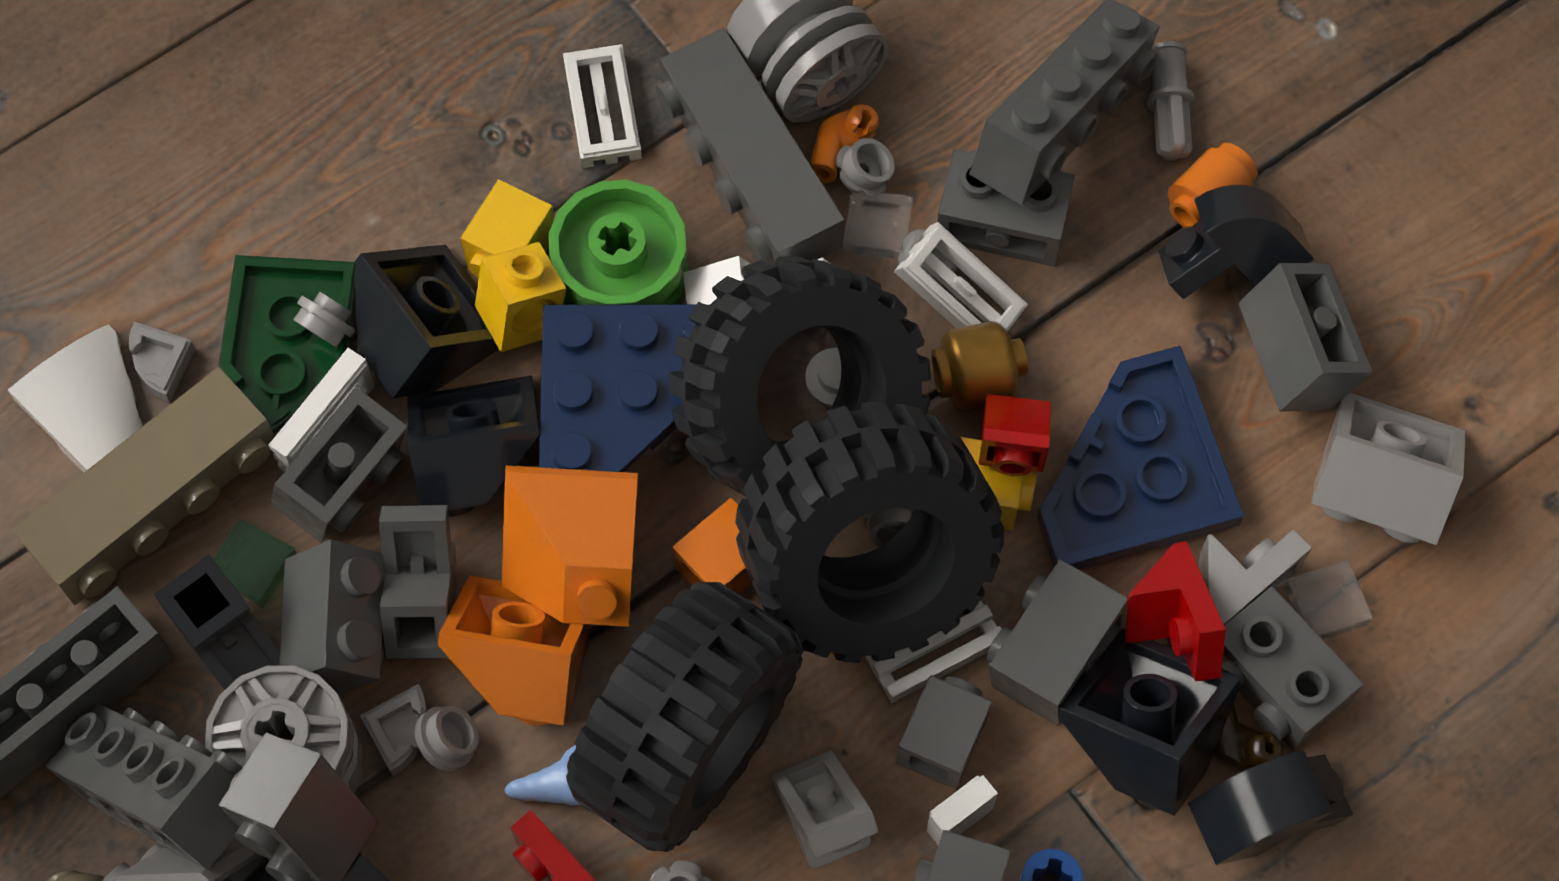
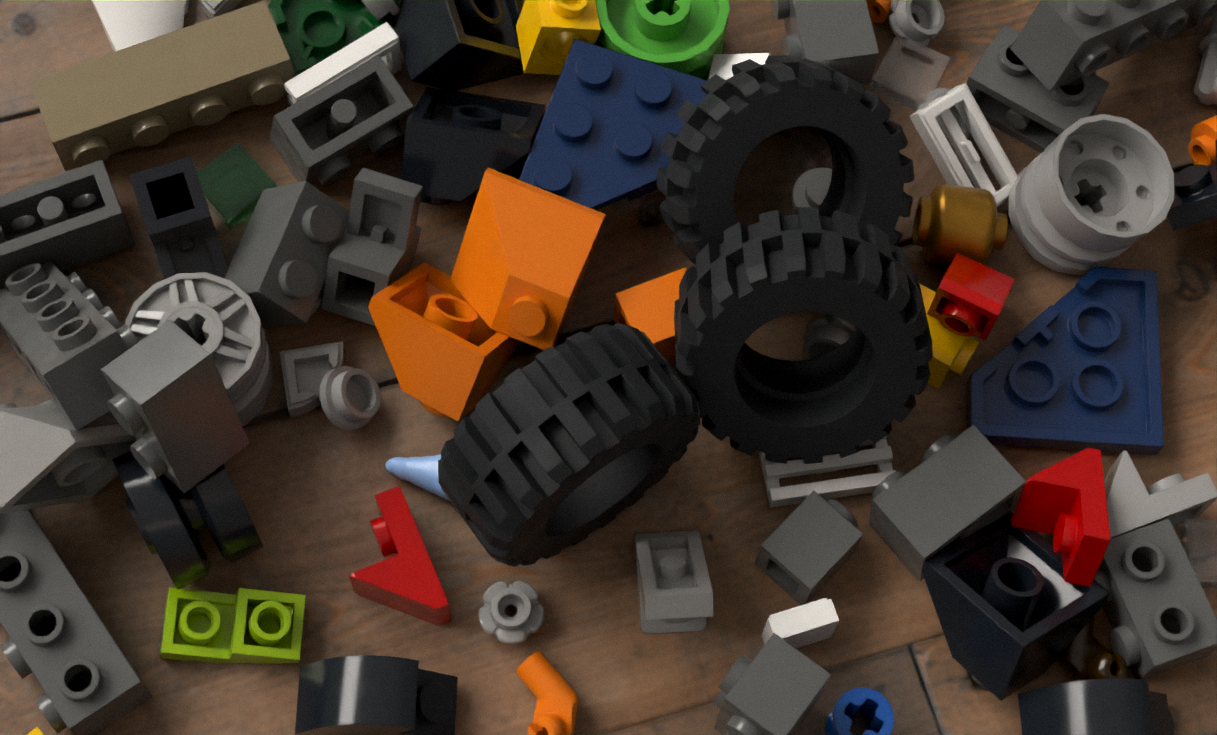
camera: 15 degrees right, 0 degrees up
(1094, 293) = (1091, 194): none -> light grey wheel

